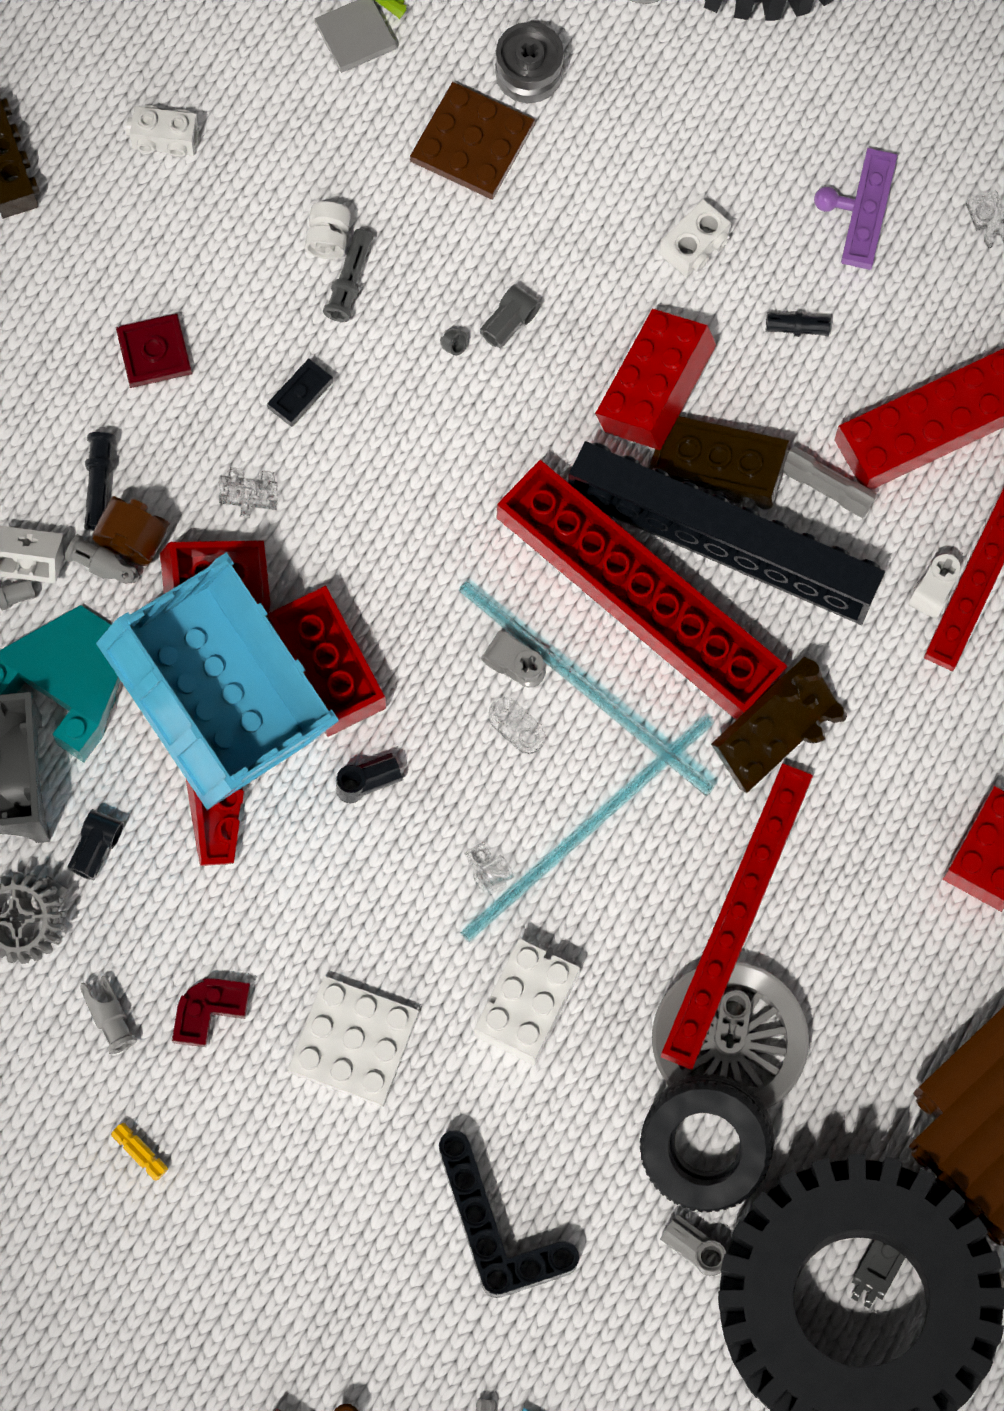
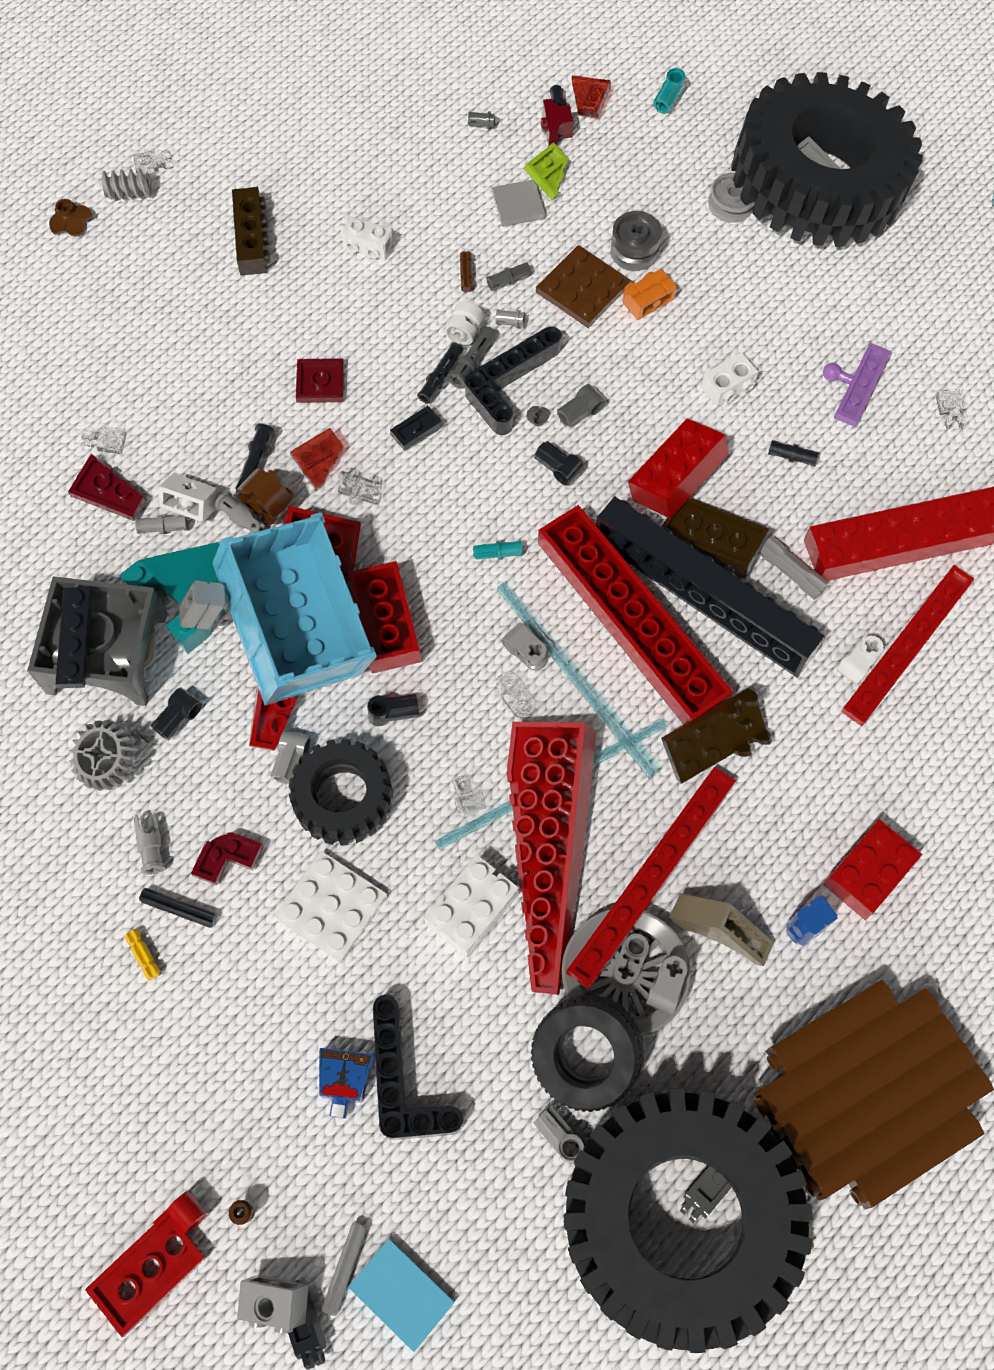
camera: 15 degrees right, 5 degrees down
(98, 700) = (202, 605): none -> light grey brick
(166, 1085) = (177, 907): none -> black axle
(181, 460) = (318, 457): none -> clear red wing
(254, 858) = (290, 749): none -> light grey piece
(308, 318) = (428, 391): none -> black pin
(310, 151) = (466, 271): none -> reddish brown axle
(324, 855) = (333, 760): none -> black tyre
(368, 147) = (507, 276): none -> dark grey axle
(386, 208) = (510, 318): none -> light grey pin
(402, 290) = (527, 357): none -> black beam
(424, 1240) = (343, 1078): none -> torso
(447, 538) = (497, 550): none -> teal axle
(506, 406) = (564, 467): none -> black piece
(563, 135) = (649, 293): none -> orange brick
(591, 848) = (550, 803): none -> red wedge
(783, 1049) = (667, 989): none -> light grey piece
(834, 957) = (722, 924): none -> dark tan arch
(936, 929) = (811, 921): none -> blue brick

